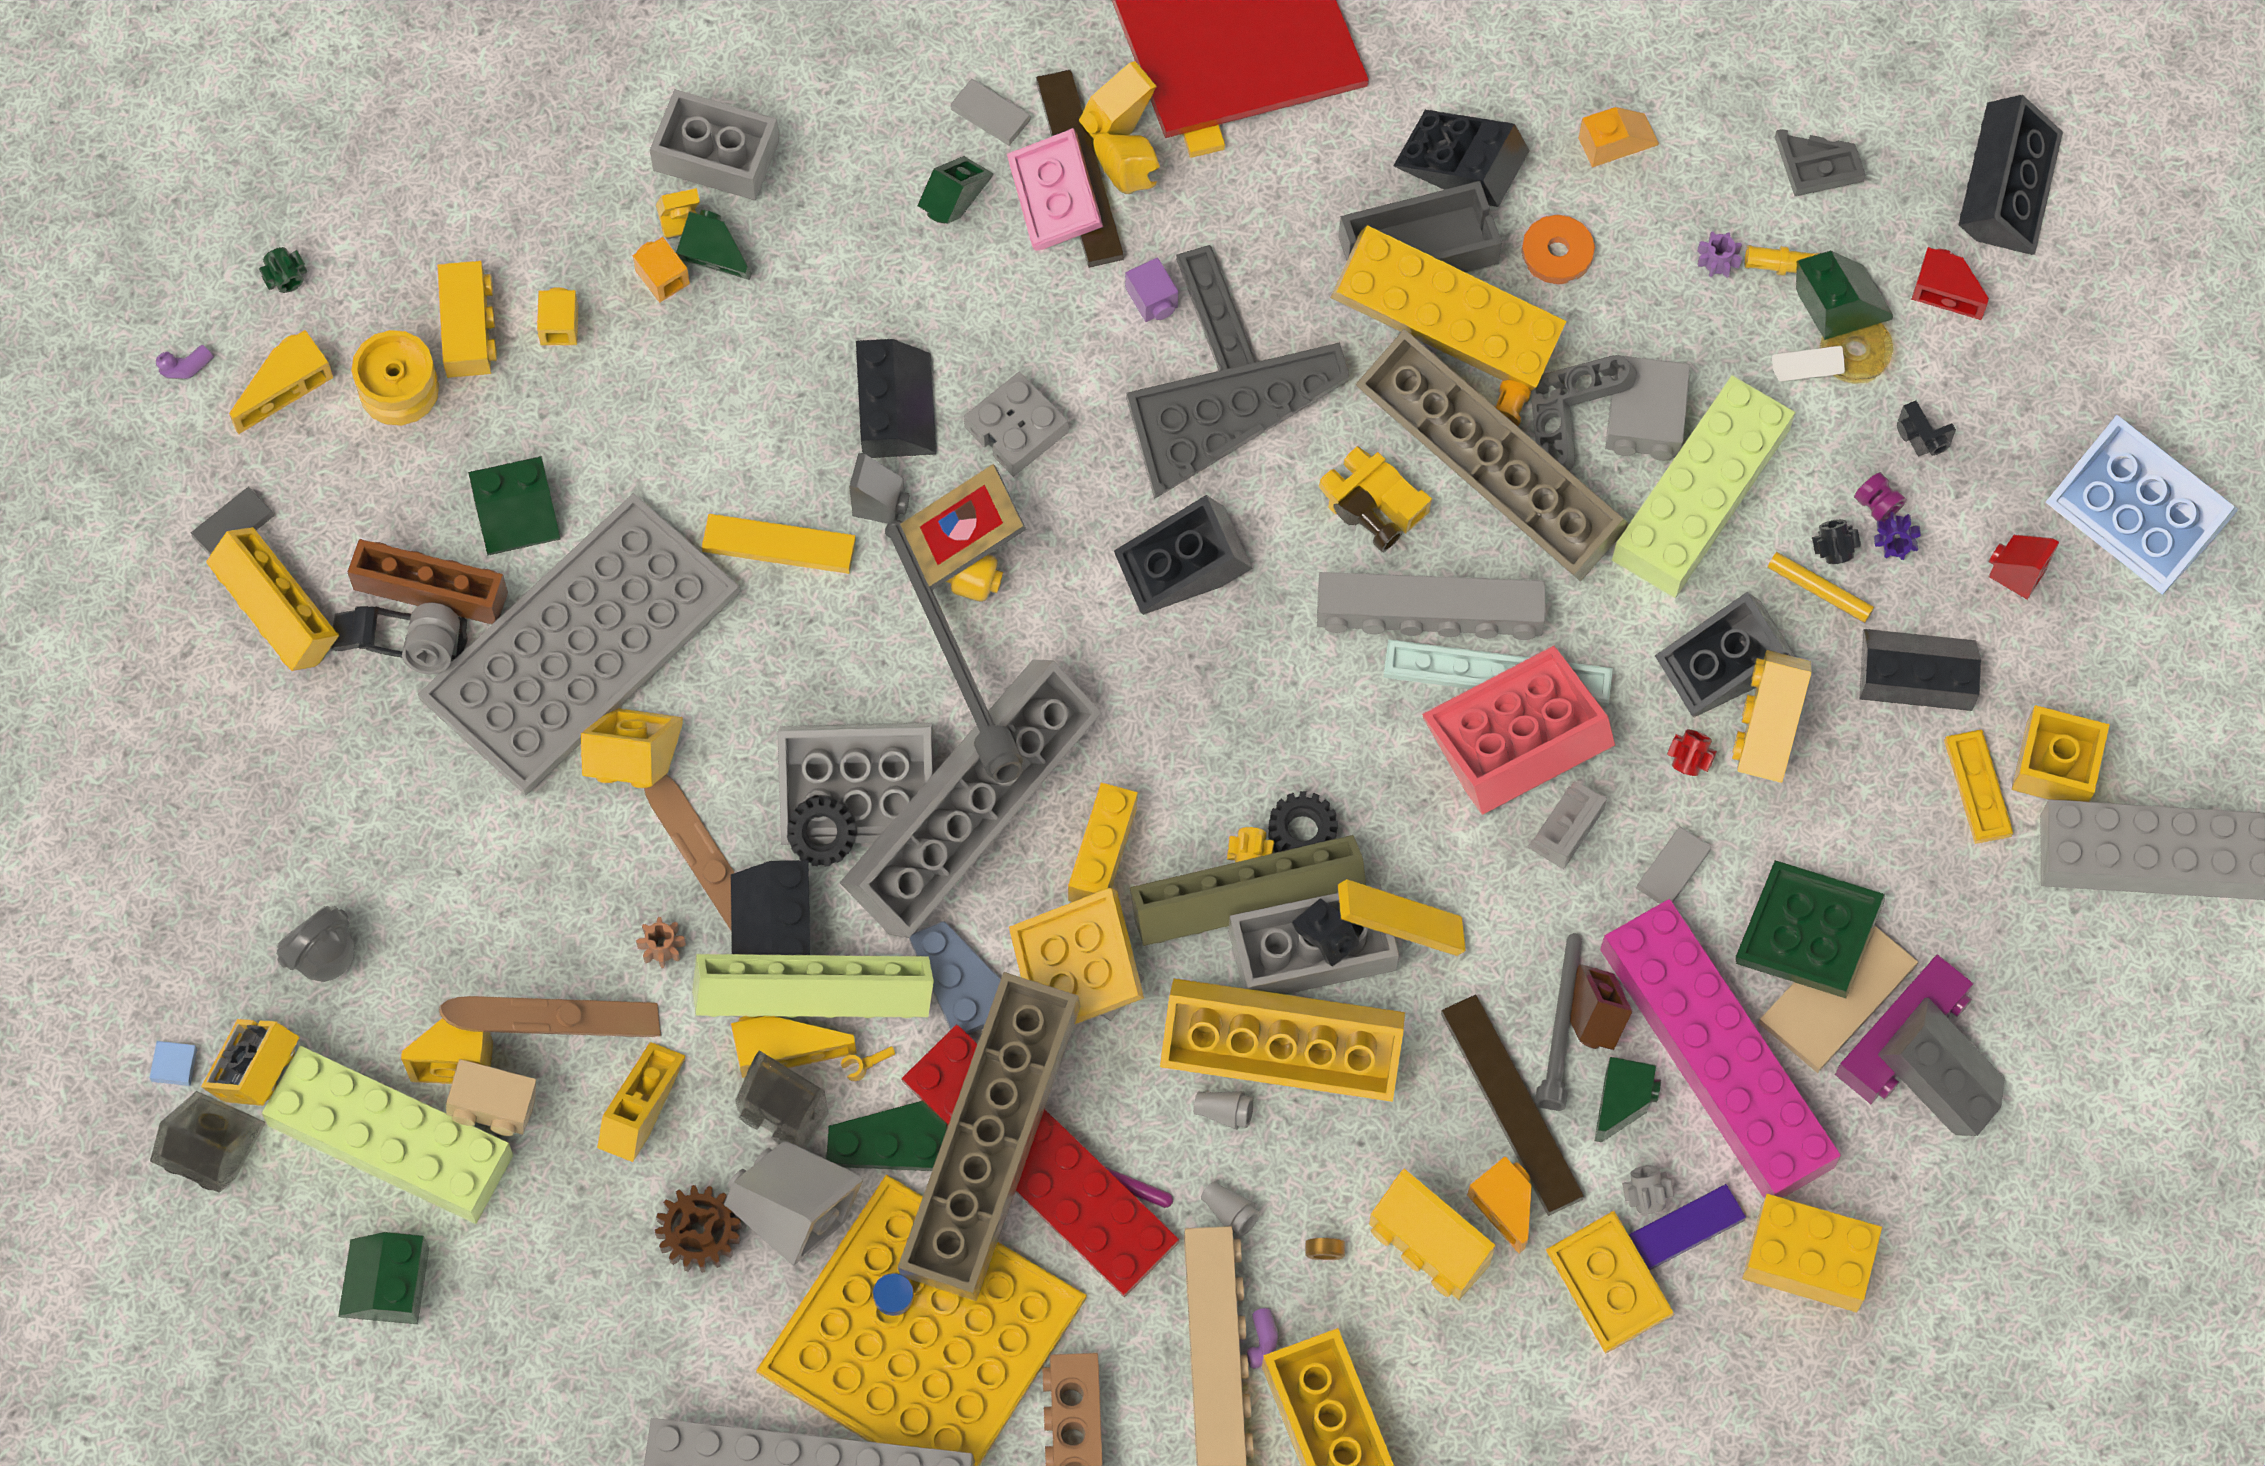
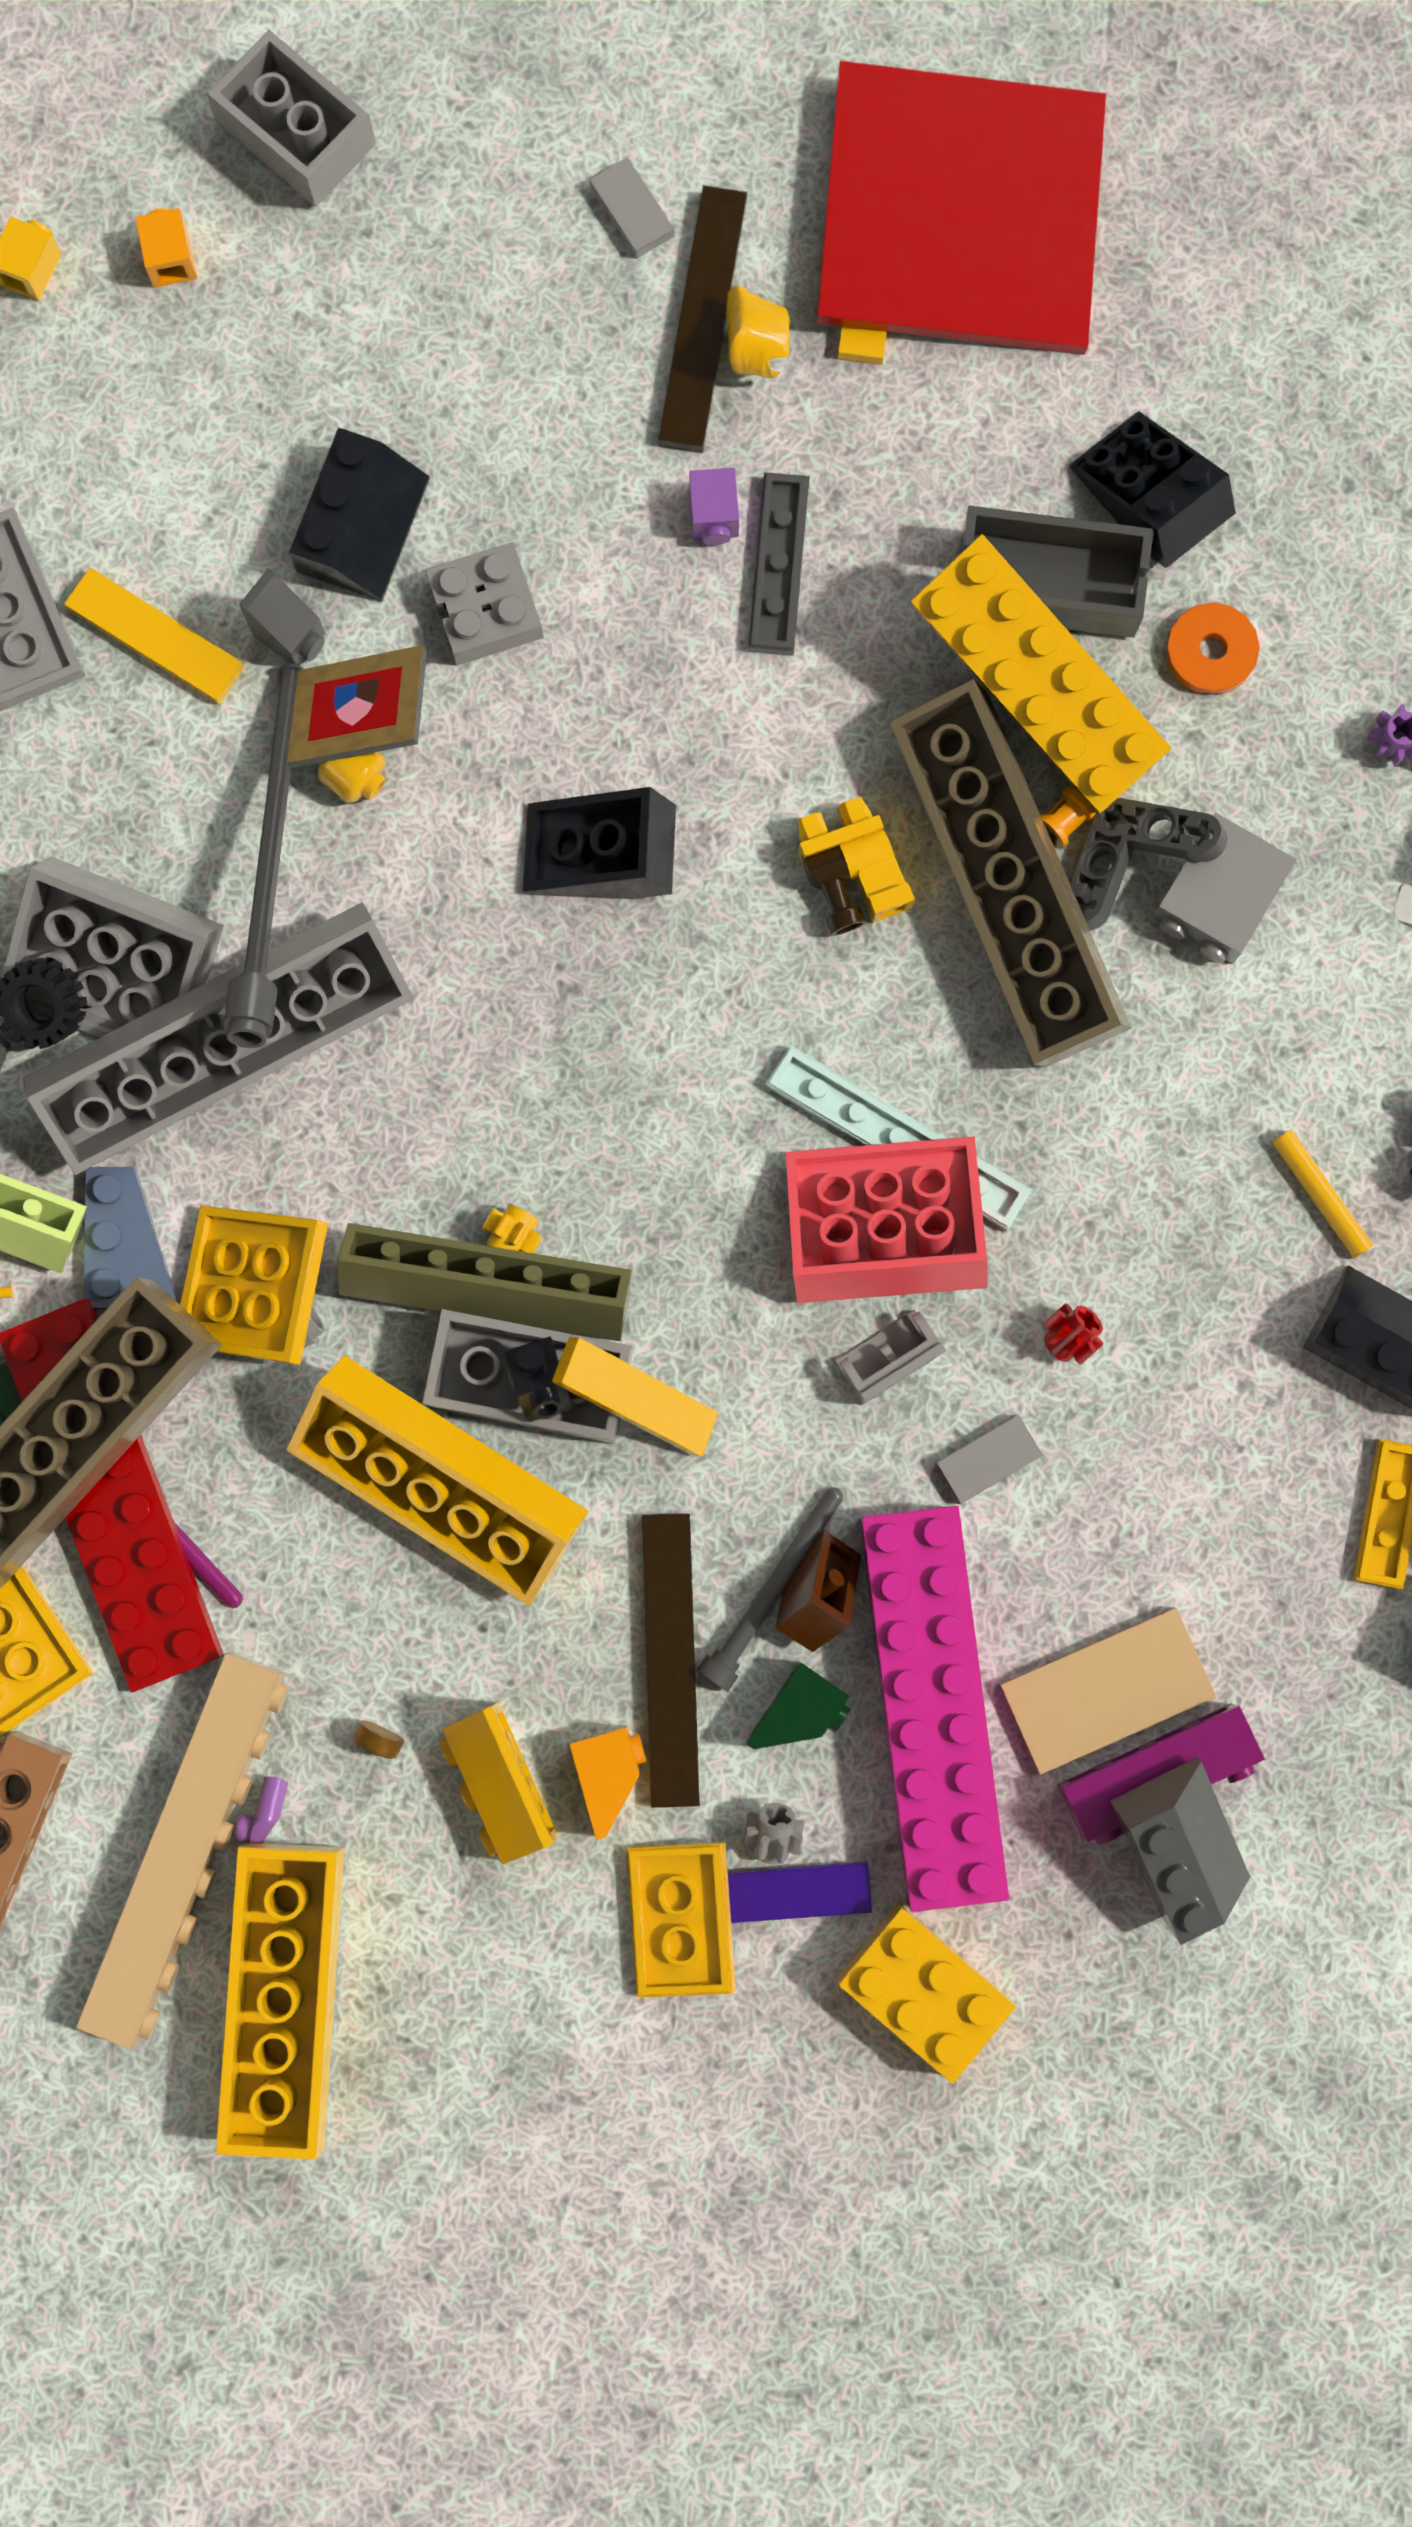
camera: 25 degrees right, 15 degrees up
(674, 210) = (215, 187): yellow bracket -> none
(710, 244) = (235, 240): dark green slope -> none
(953, 189) = (543, 285): dark green slope -> none
(1054, 190) = (659, 334): bright pink tile -> none
(1103, 841) = (347, 1155): yellow brick -> none
(1118, 102) = (776, 257): yellow slope -> none
(1210, 415) = (710, 686): dark grey wing -> none
(1226, 1108) = (346, 1525): light grey cone -> none
(1231, 1208) = (296, 1645): light grey cone -> none
(1301, 807) = (592, 1202): black tyre -> none
(1431, 605) = (855, 1024): light grey brick -> none
(1615, 135) = (1347, 535): light orange slope -> none
(1703, 486) = (1242, 1014): yellowish green brick -> none
(1720, 654) = (1170, 1232): black slope -> none
(1771, 715) = (1182, 1339): yellow brick -> none
(1810, 929) = (1108, 1607): dark green plate -> none
(1836, 541) = (1366, 1148): black gear -> none

